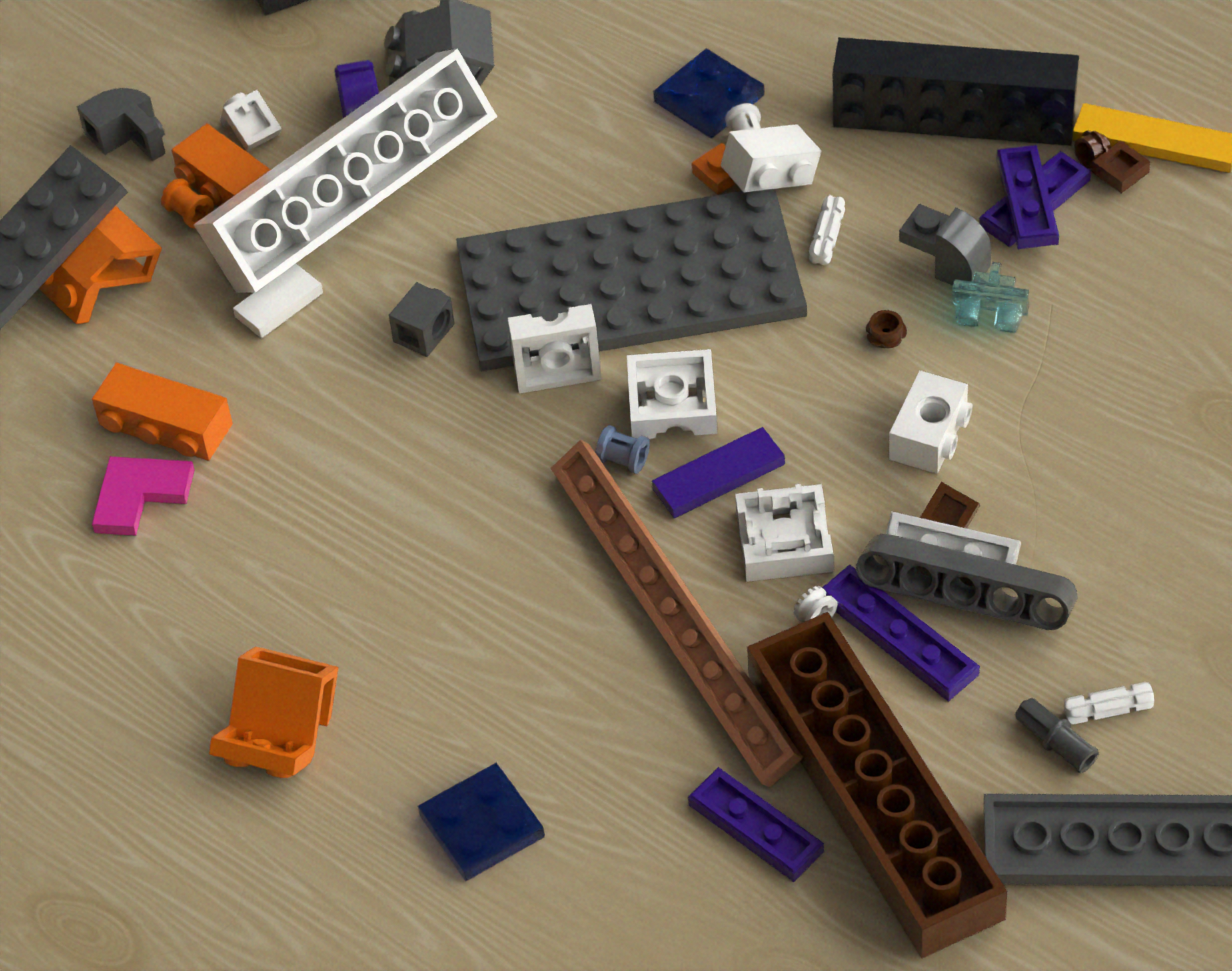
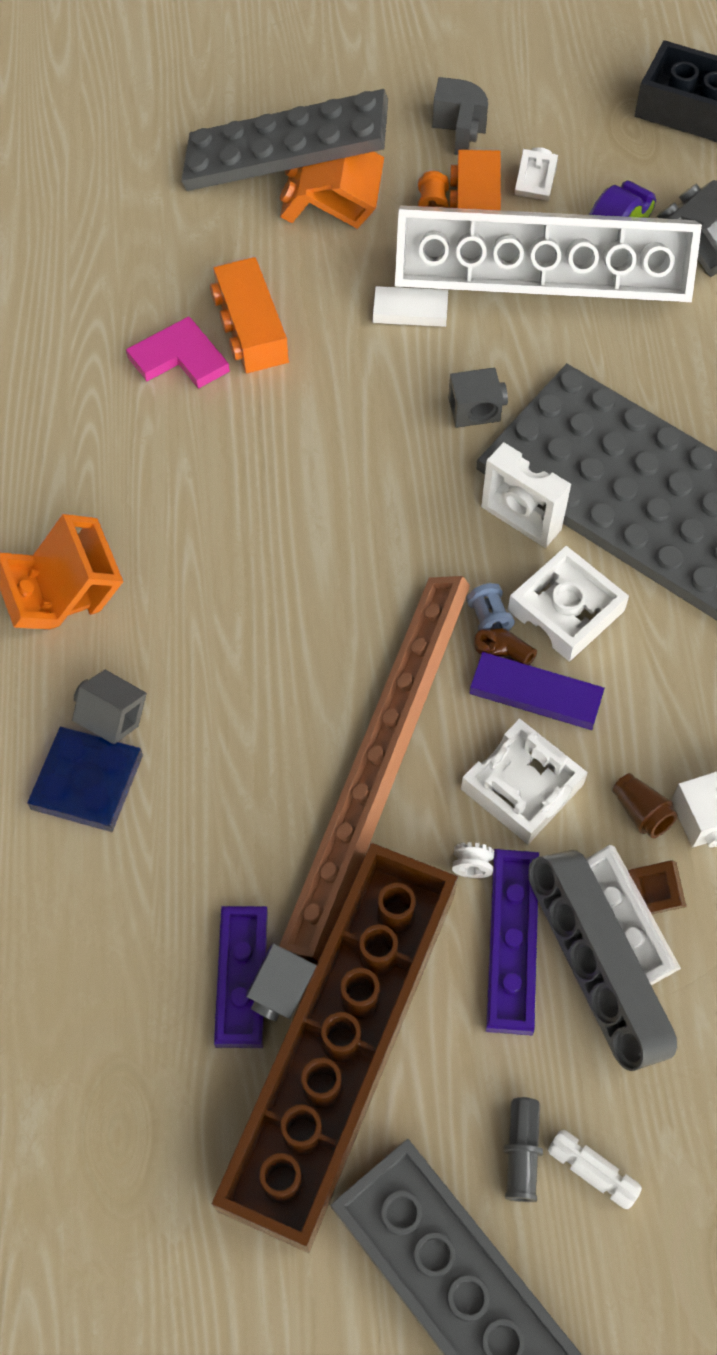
camera: 45 degrees right, 10 degrees up
(439, 755) = (108, 706): none -> dark grey brick
(659, 462) = (504, 643): none -> reddish brown arm
(794, 784) = (279, 983): none -> dark grey brick
(879, 473) = (645, 806): none -> reddish brown cone

